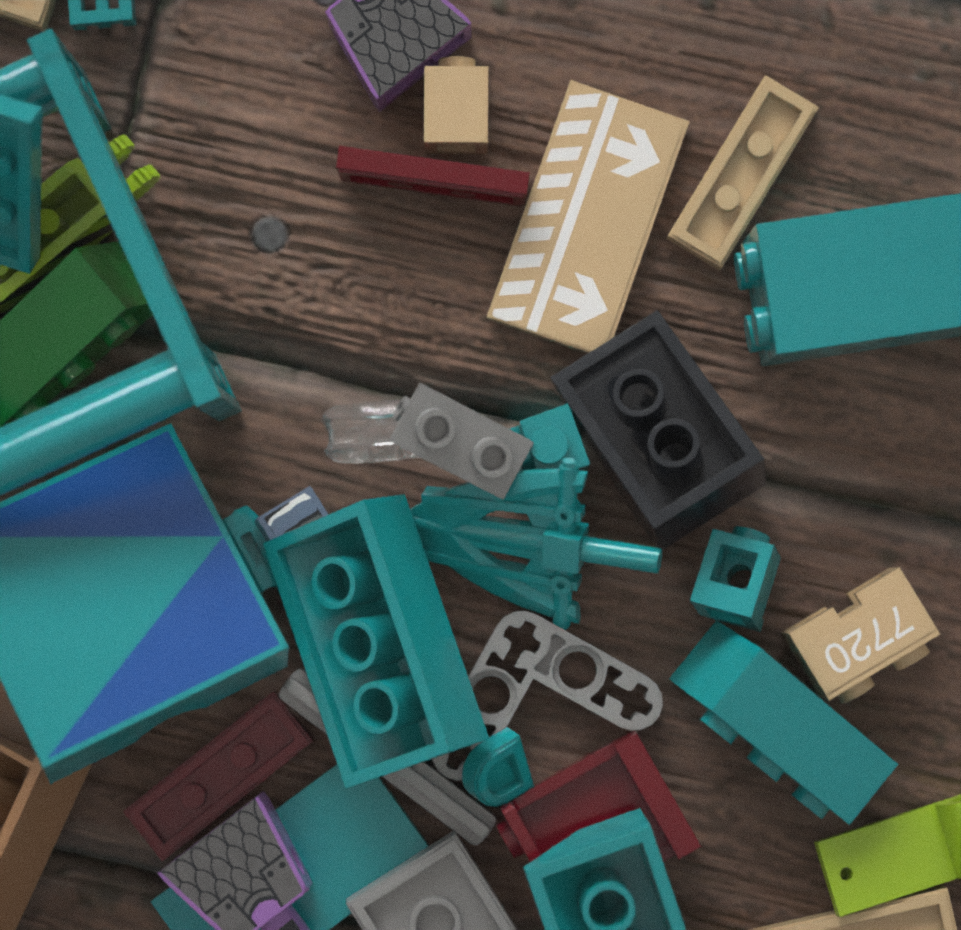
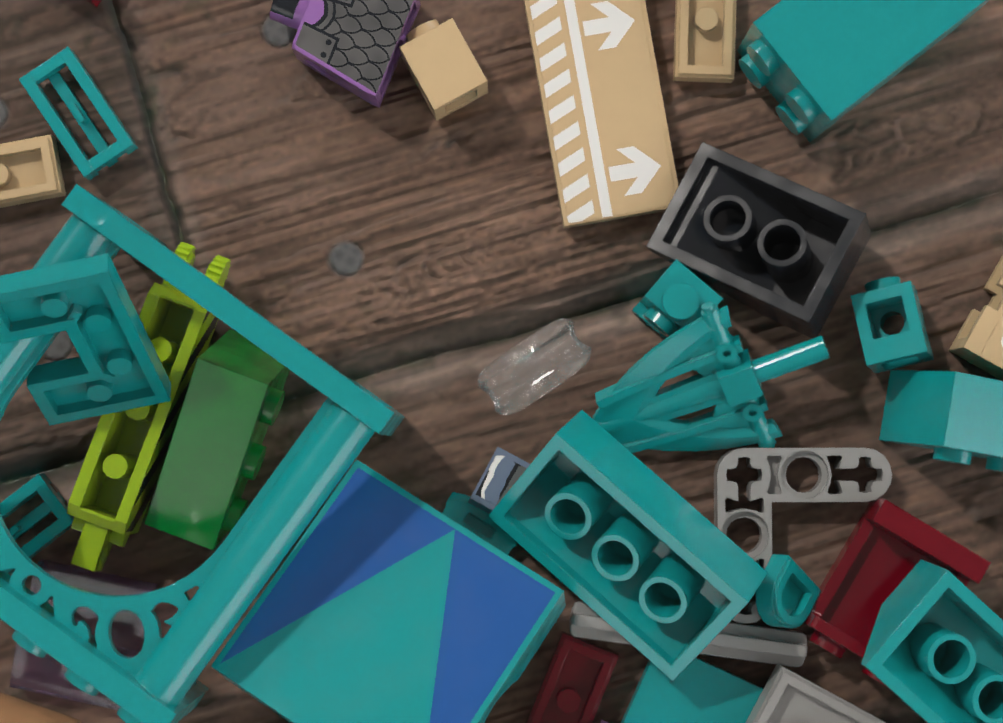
camera: 30 degrees left, 0 degrees up
(432, 176) = (456, 134): dark red tile -> none
(459, 440) = (606, 339): light grey hinge -> none

